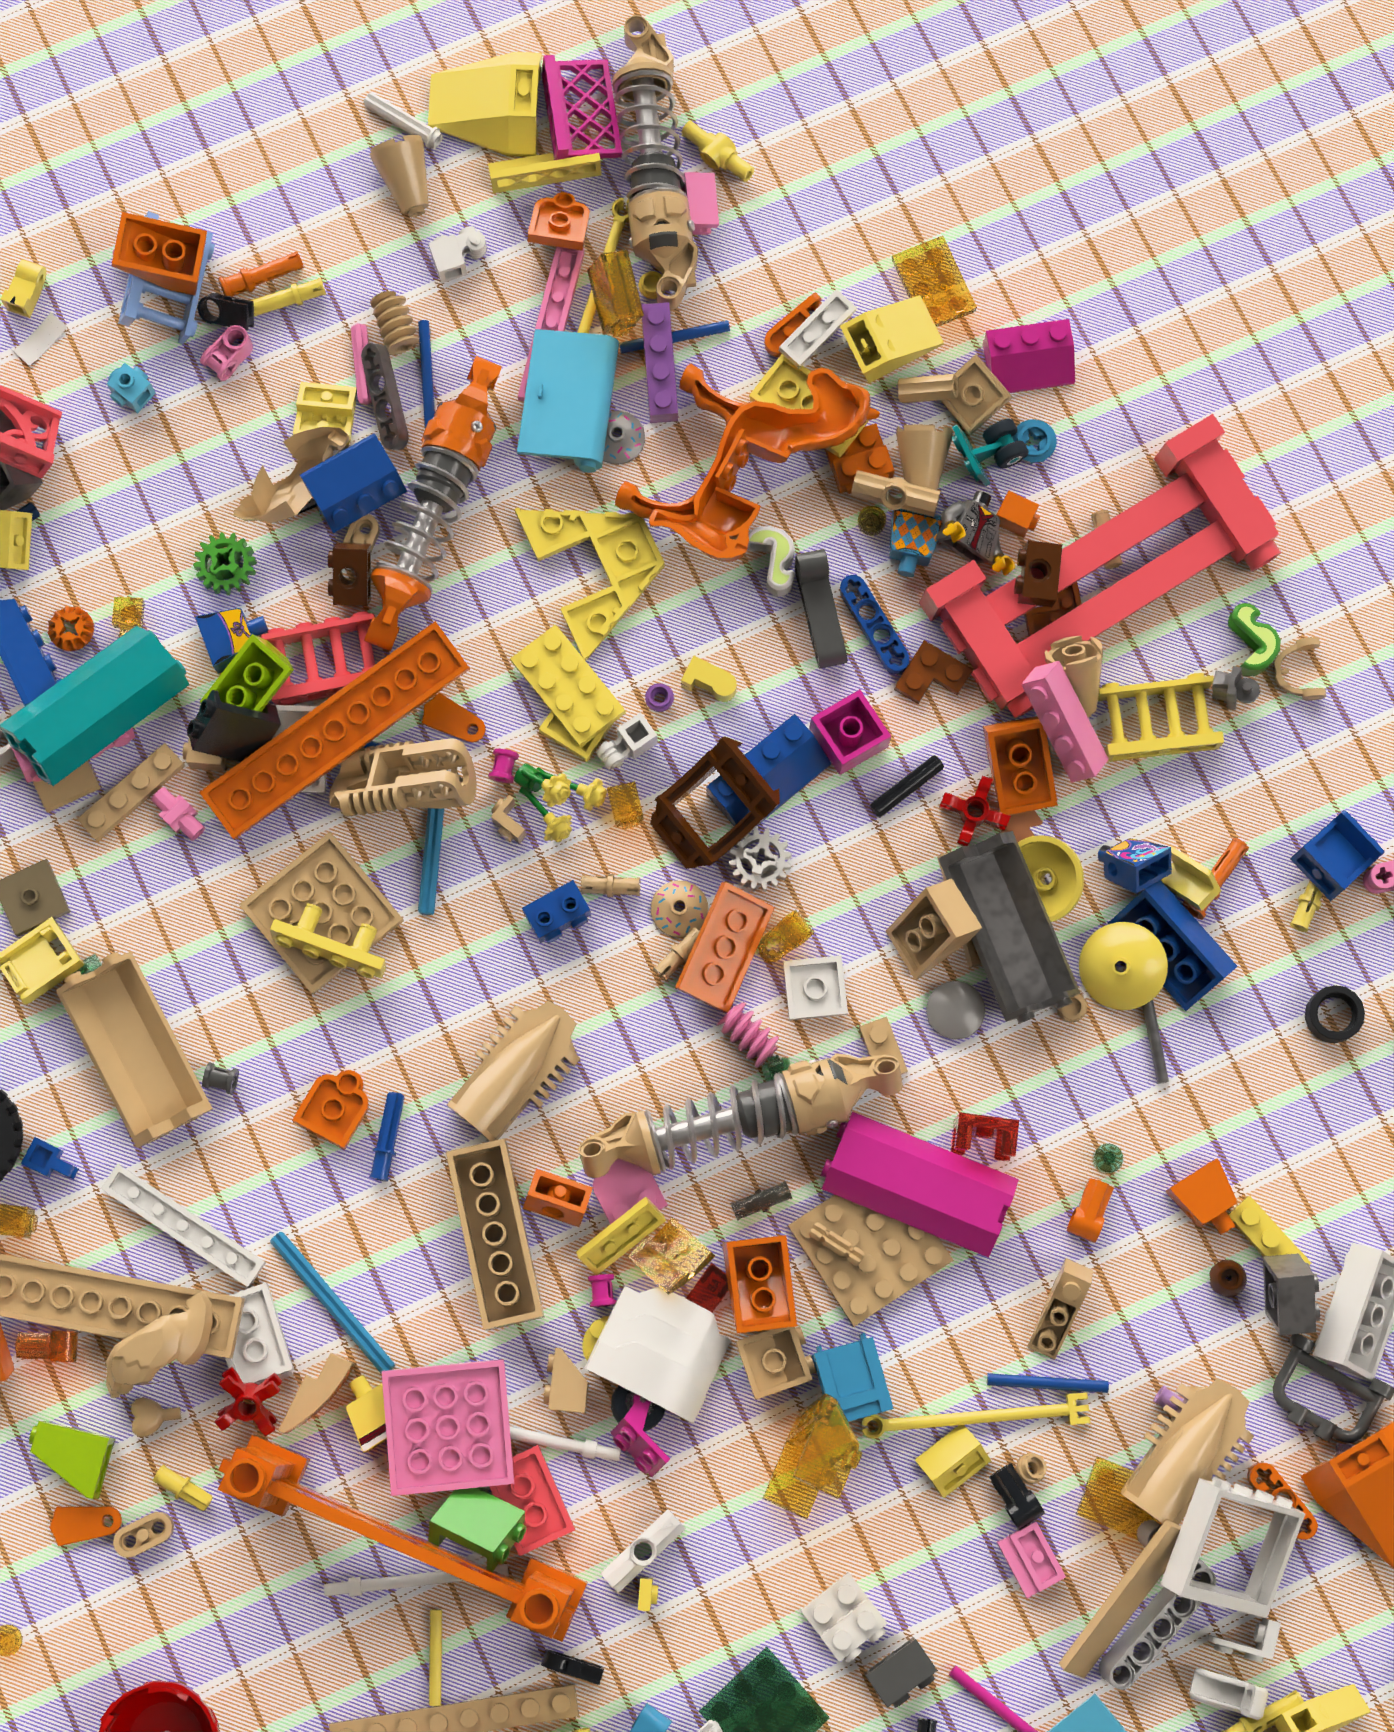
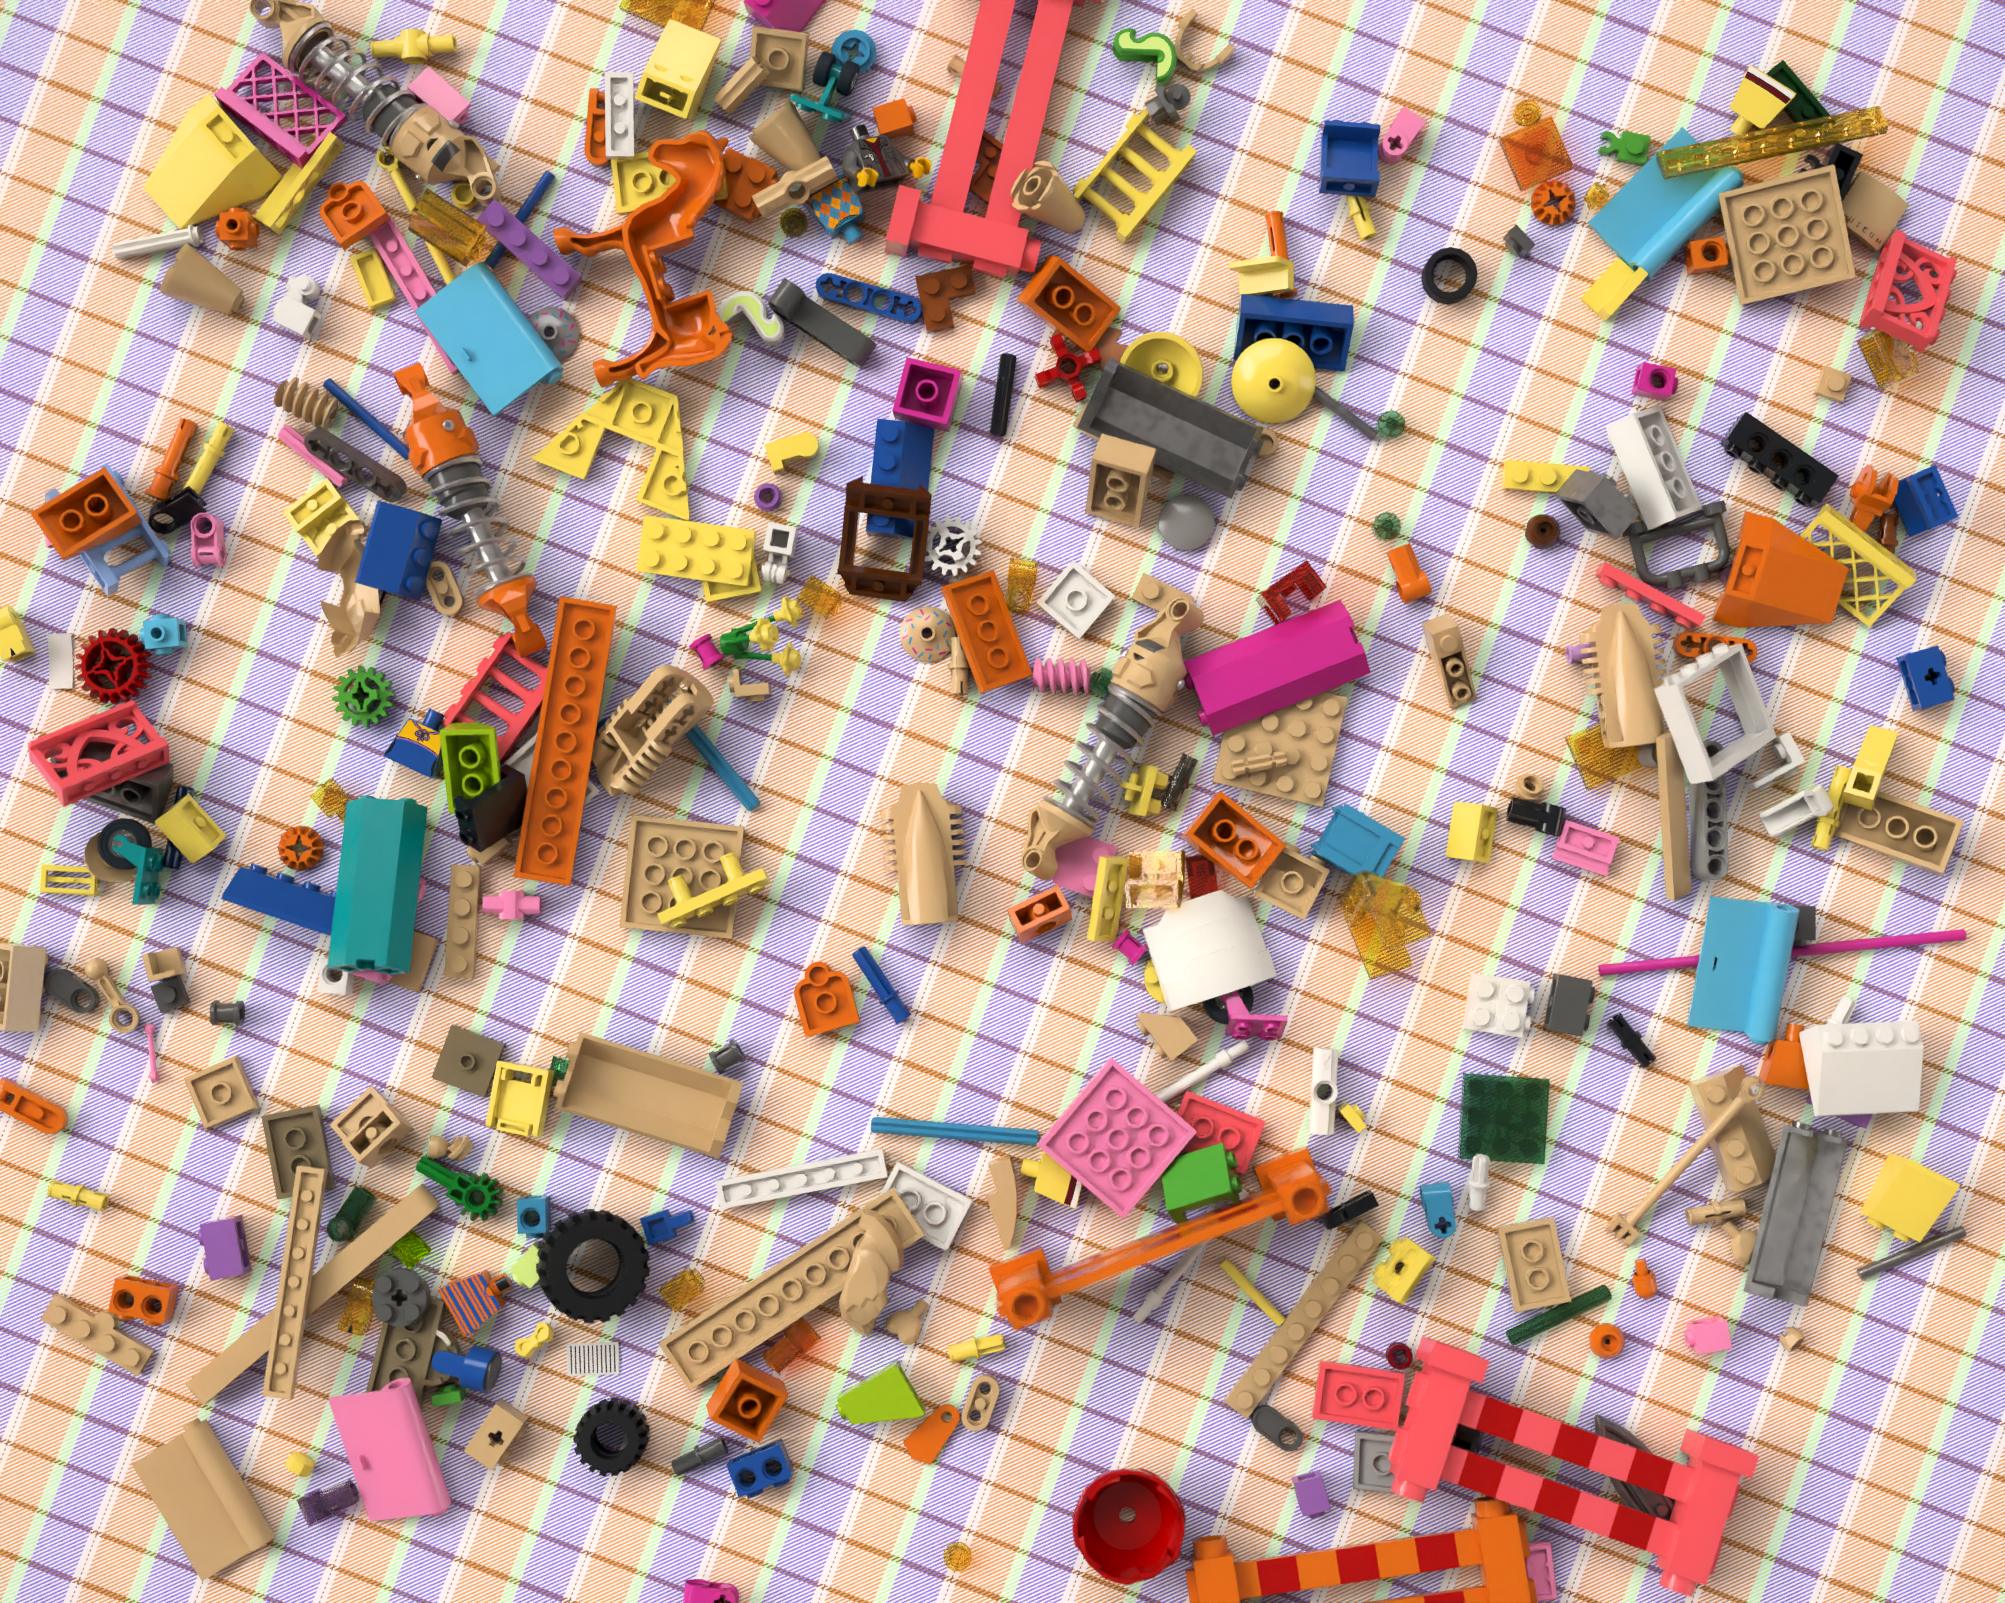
camera: 40 degrees left, 10 degrees up
(79, 357) = (104, 645): none -> red gear
(247, 1412) = (960, 1242): red pin -> none
(358, 558) = (457, 603): reddish brown brick -> none
(452, 719) = (637, 653): orange piece -> none
(467, 161) = (244, 235): none -> orange brick
(495, 1234) = (1021, 980): tan brick -> none
(529, 282) = (373, 279): none -> light yellow tile
(554, 908) = (842, 718): blue brick -> none
(610, 885) = (864, 664): tan pin -> none
(726, 1178) = (1140, 790): none -> light yellow hips
(1047, 559) = (949, 134): reddish brown brick -> none
(1047, 1383) = (1486, 719): blue bar -> none
(1065, 721) = (1073, 243): bright pink brick -> none
(1069, 1409) = (1518, 722): light yellow hinge -> none
(1135, 863) = (1216, 299): blue torso -> none
(1183, 1084) = (1390, 425): none -> clear green piece
(1206, 1196) = (1477, 489): orange torso -> none
(1270, 1420) = (1640, 591): none -> coral plate

